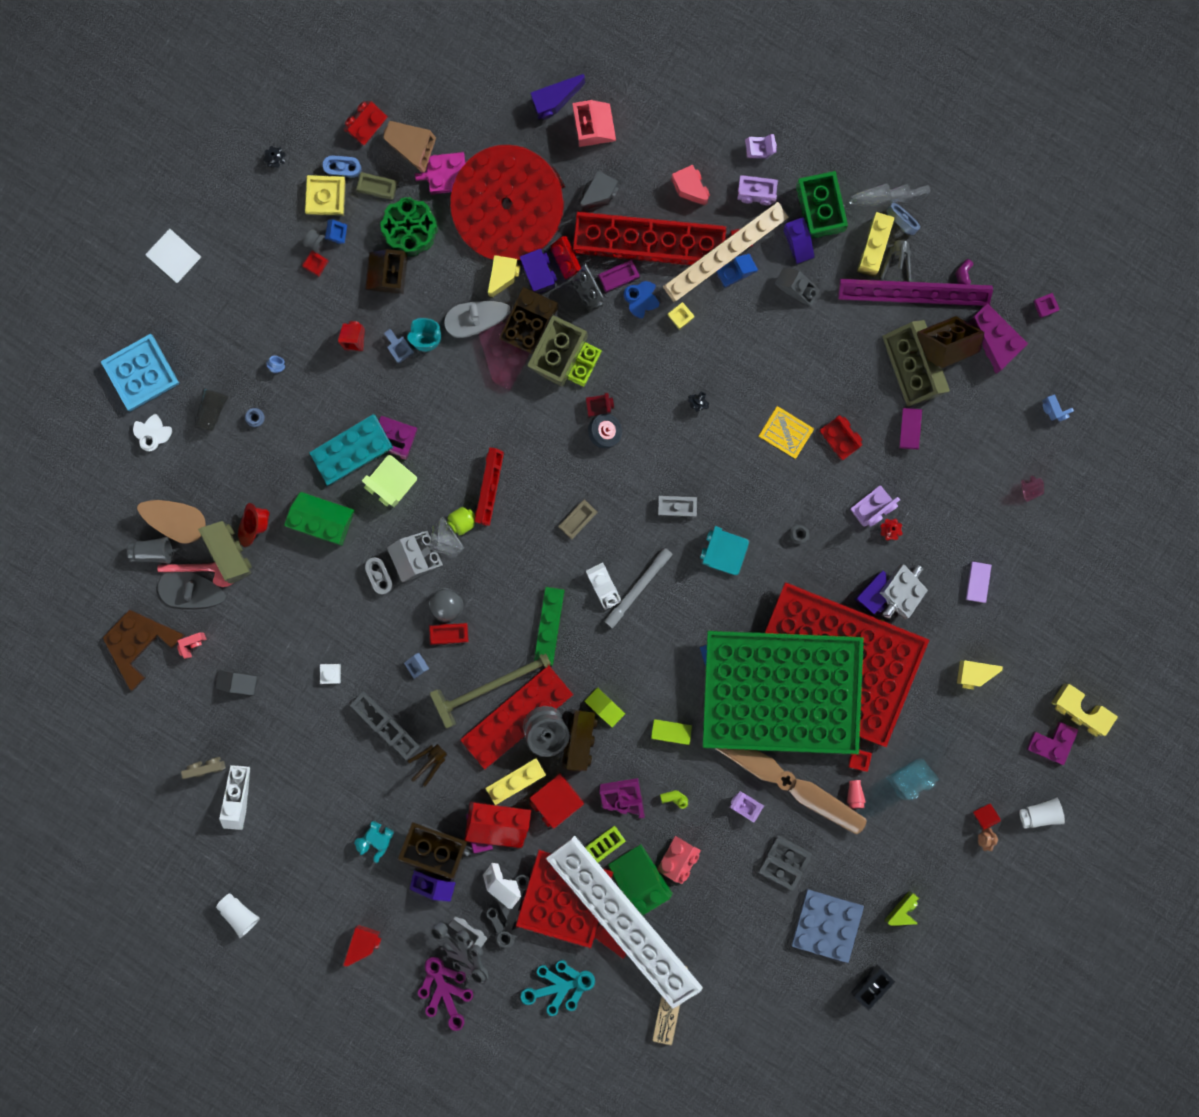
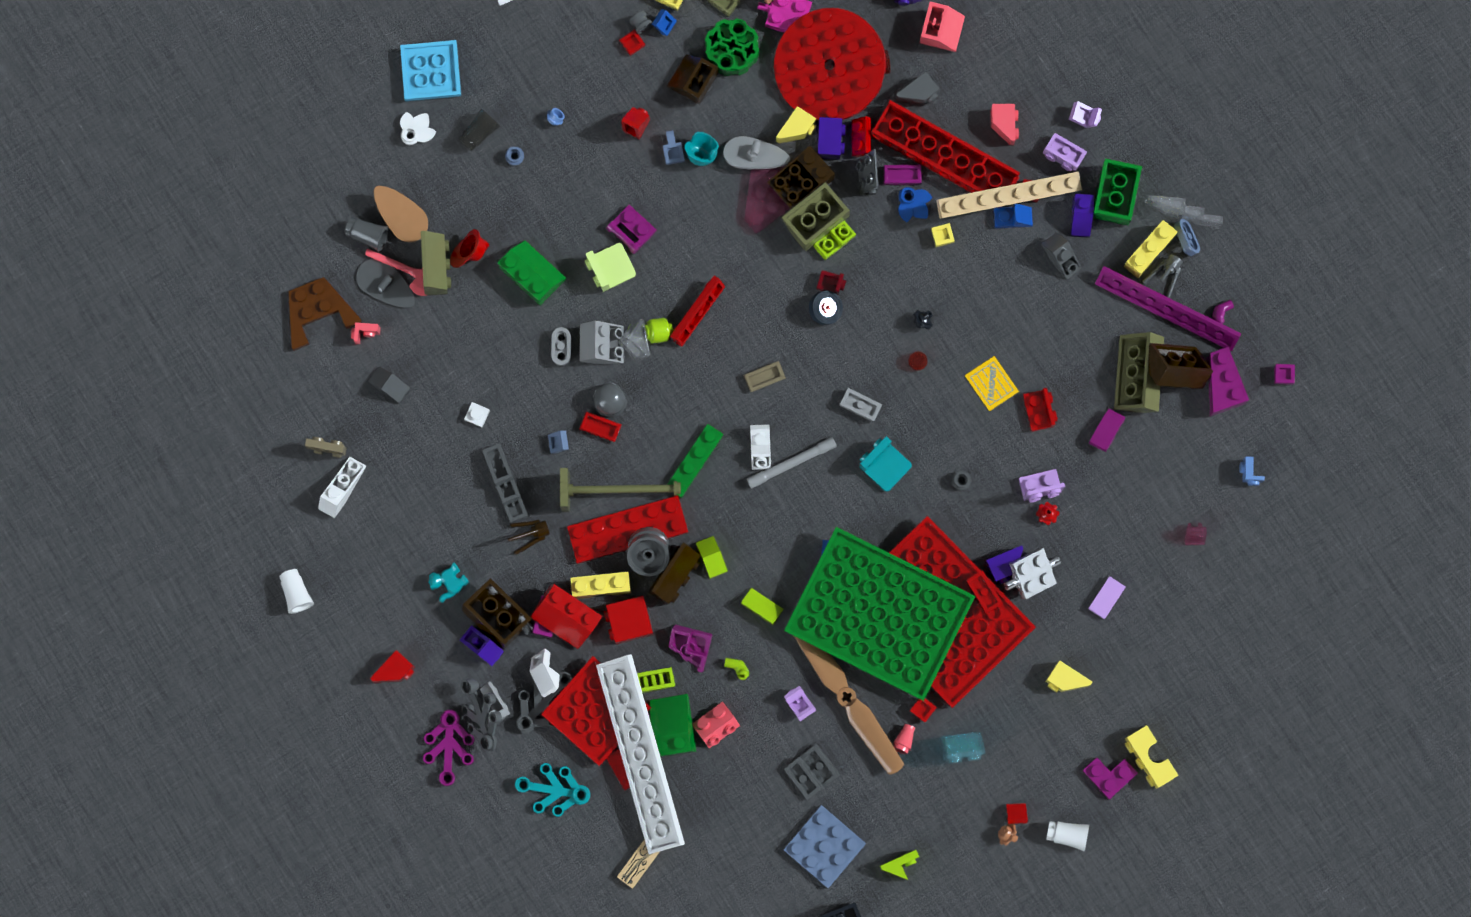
camera: 25 degrees right, 5 degrees down
(351, 450) = (588, 223): teal plate -> none
(710, 442) = (918, 361): none -> clear red plate
(869, 629) = (984, 591): none -> red plate

